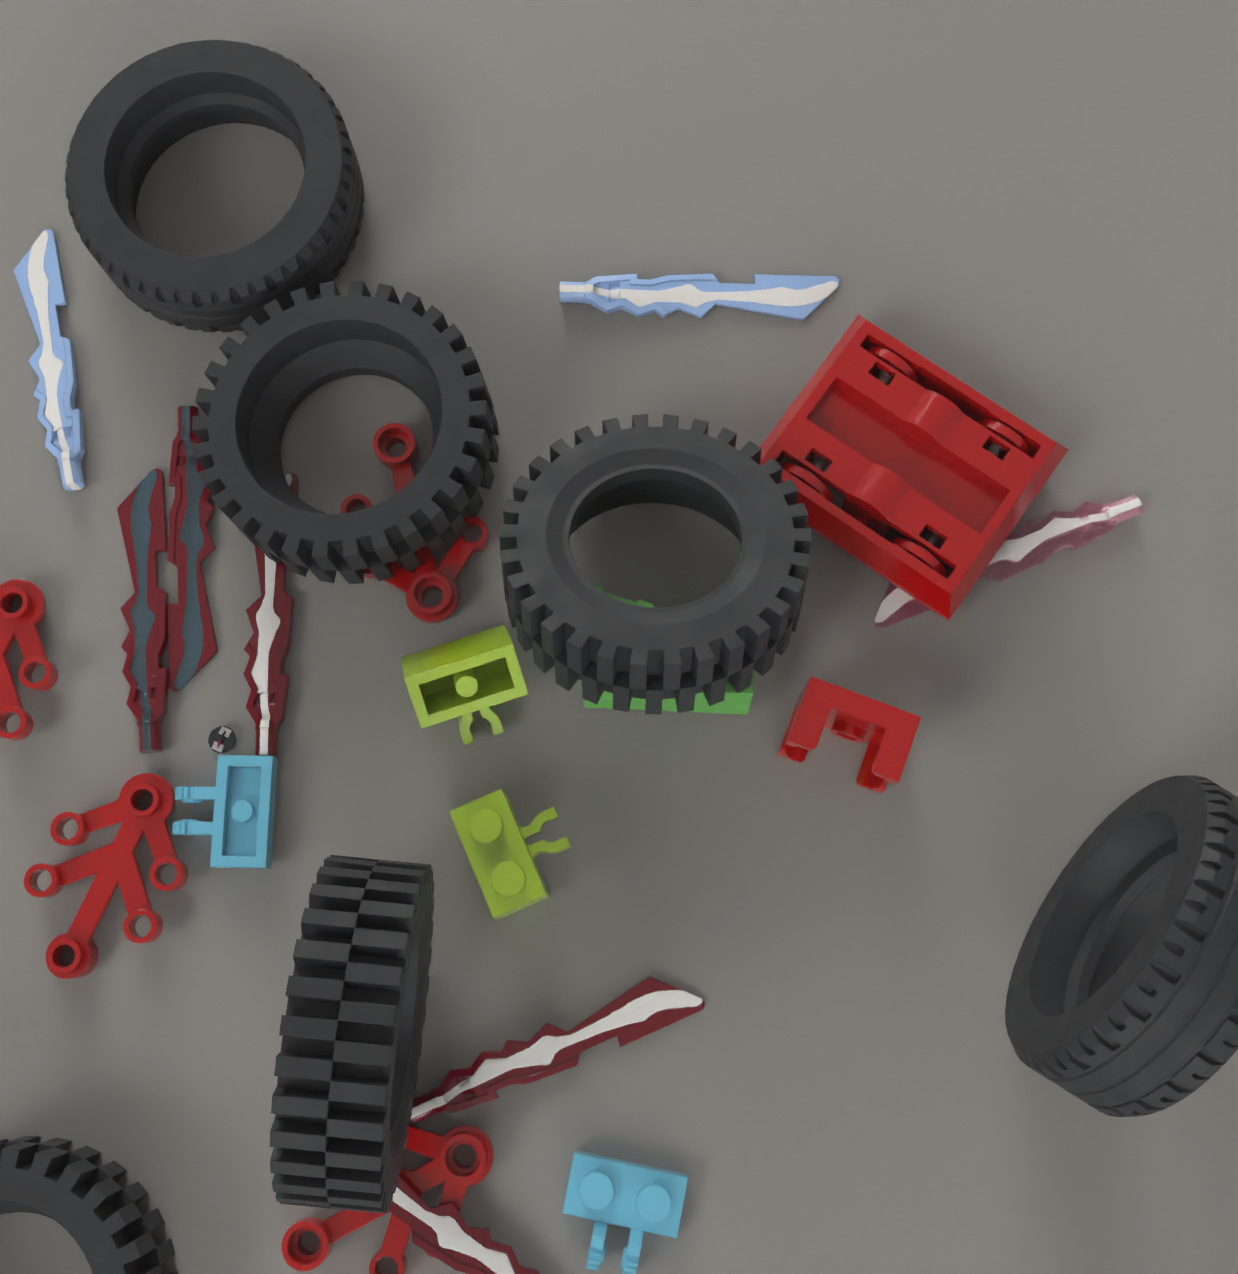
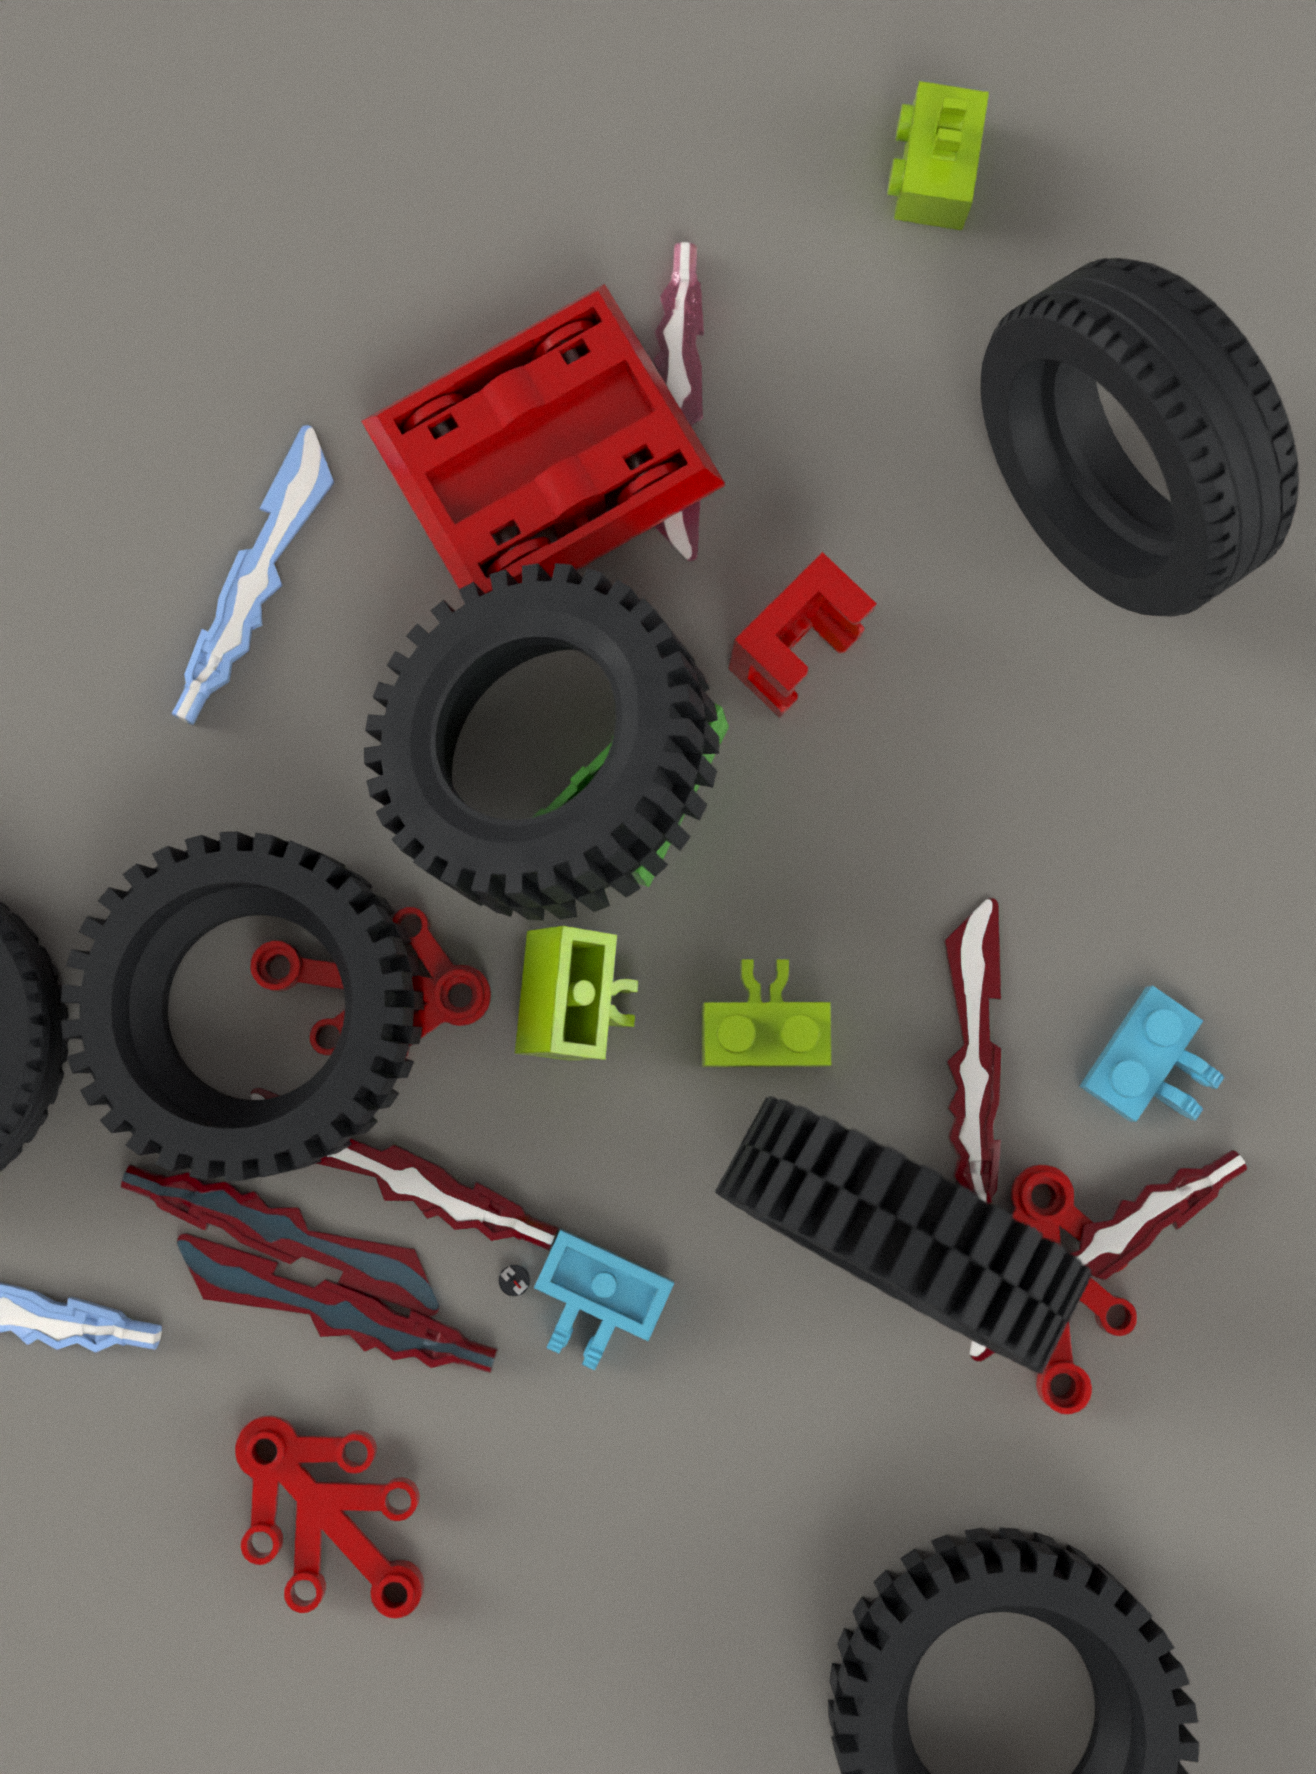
camera: 75 degrees left, 5 degrees up
(113, 866) = (600, 1445): red plant -> none

